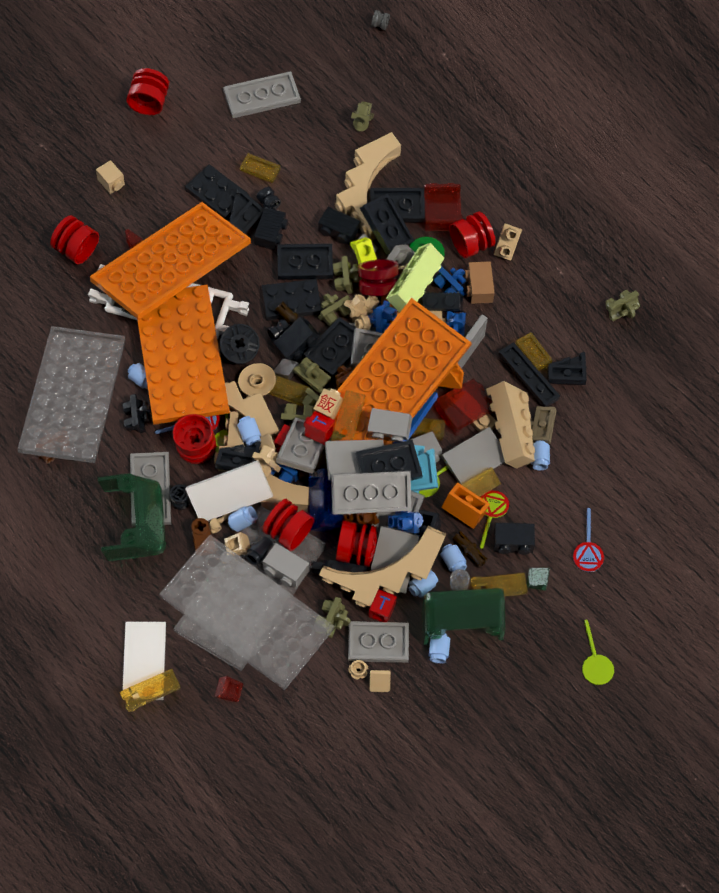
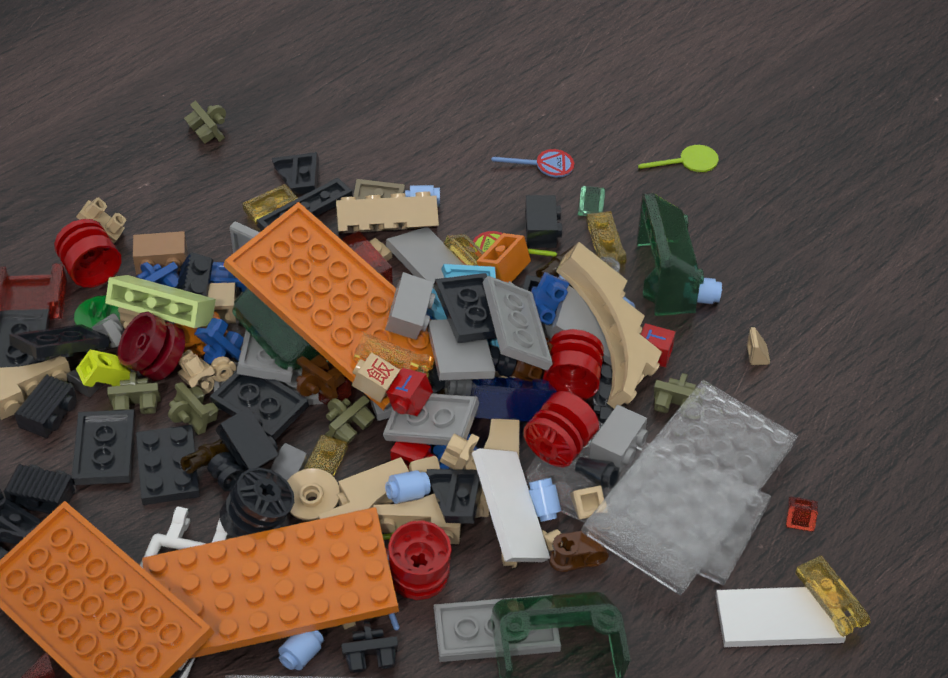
camera: 90 degrees left, 15 degrees down
(181, 501) = (512, 580): black wheel -> none
(291, 412) = (375, 445): olive hips -> none
(312, 374) = (304, 426): olive hips -> none
(358, 664) = (746, 370): tan plate -> none
(378, 641) = (702, 352): light grey tile -> none

